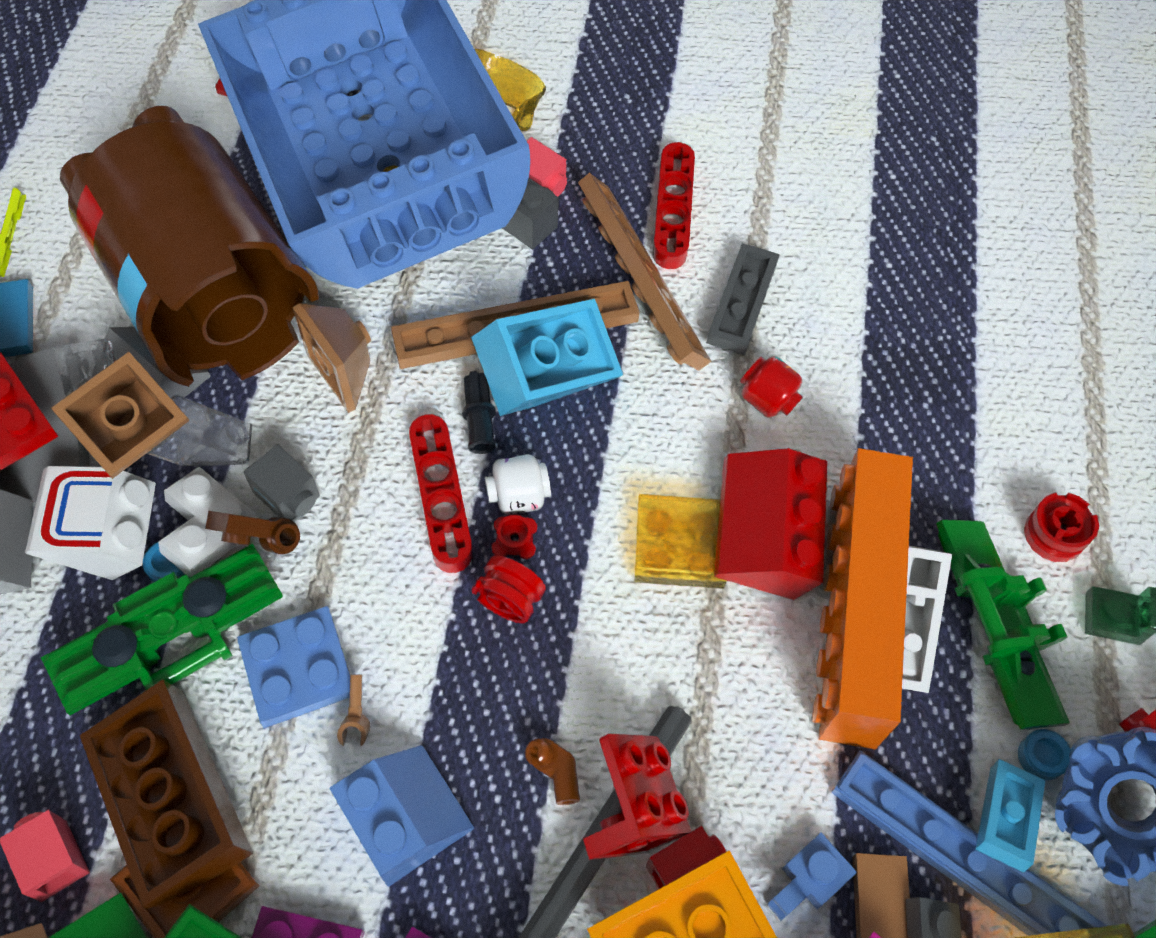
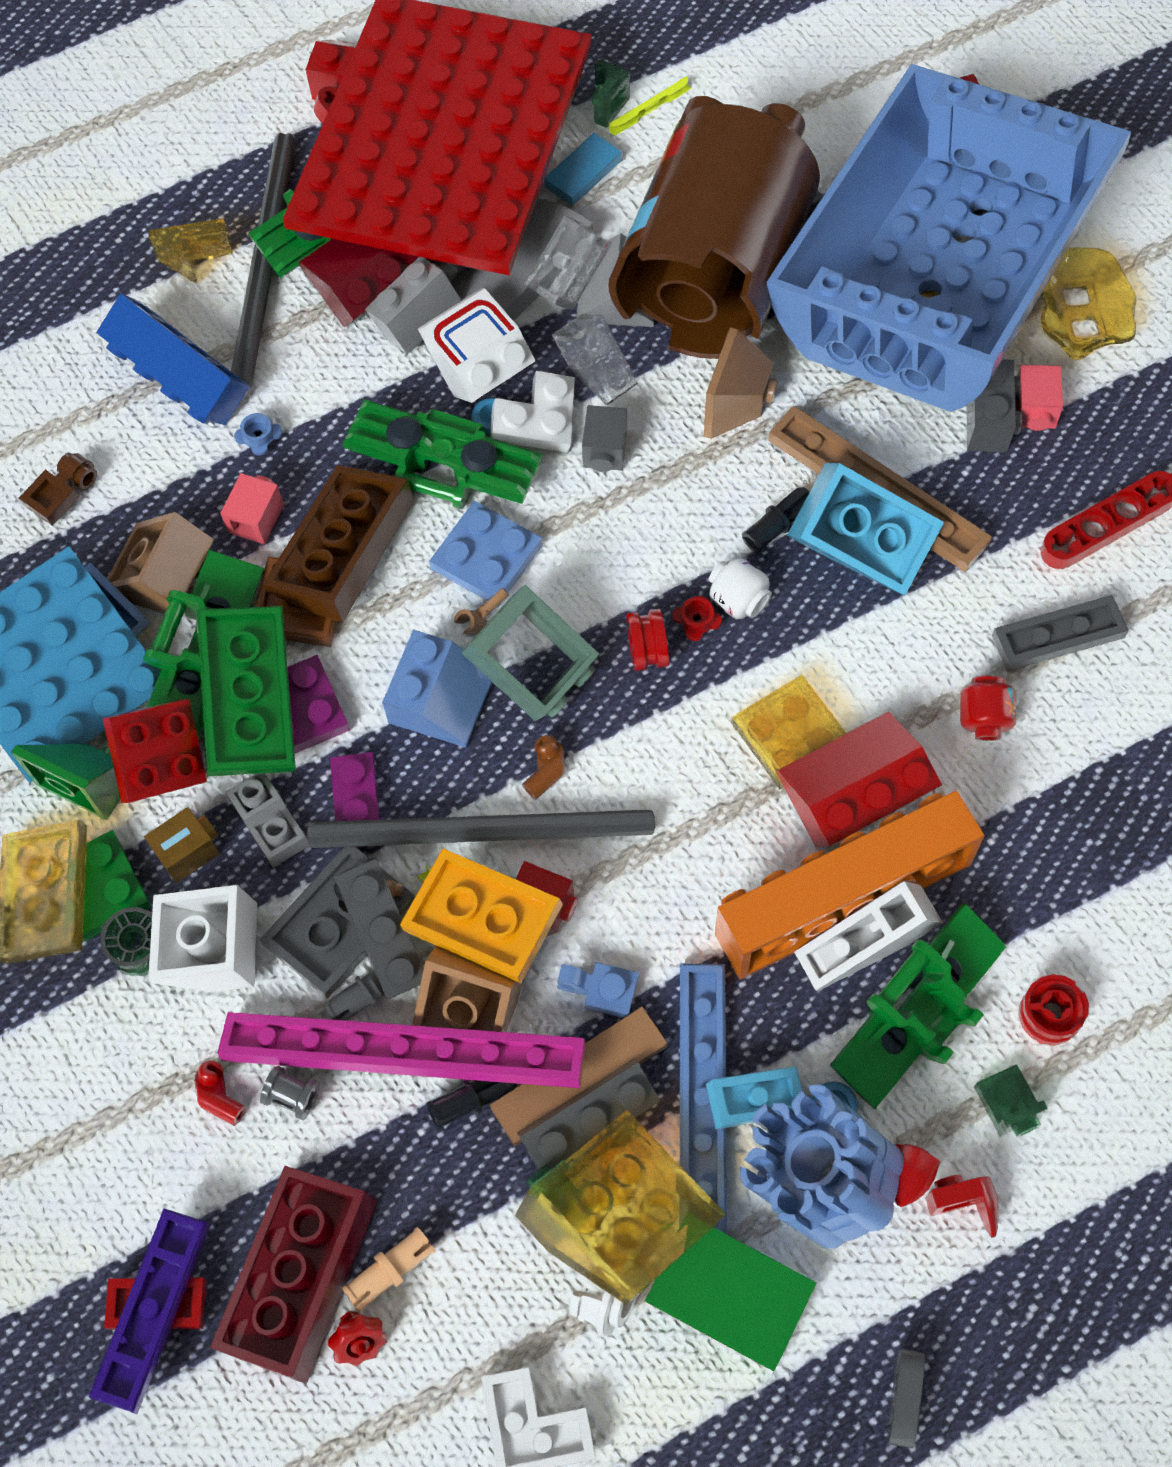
camera: 60 degrees right, 5 degrees up
(120, 414) = (551, 296): medium nougat slope -> none
(274, 534) = (545, 437): reddish brown plate -> none
(398, 709) = (551, 625): none -> sand green window
(440, 491) = (696, 546): red beam -> none
(647, 795) = (558, 823): red bracket -> none
(648, 283) = (1013, 541): medium nougat plate -> none

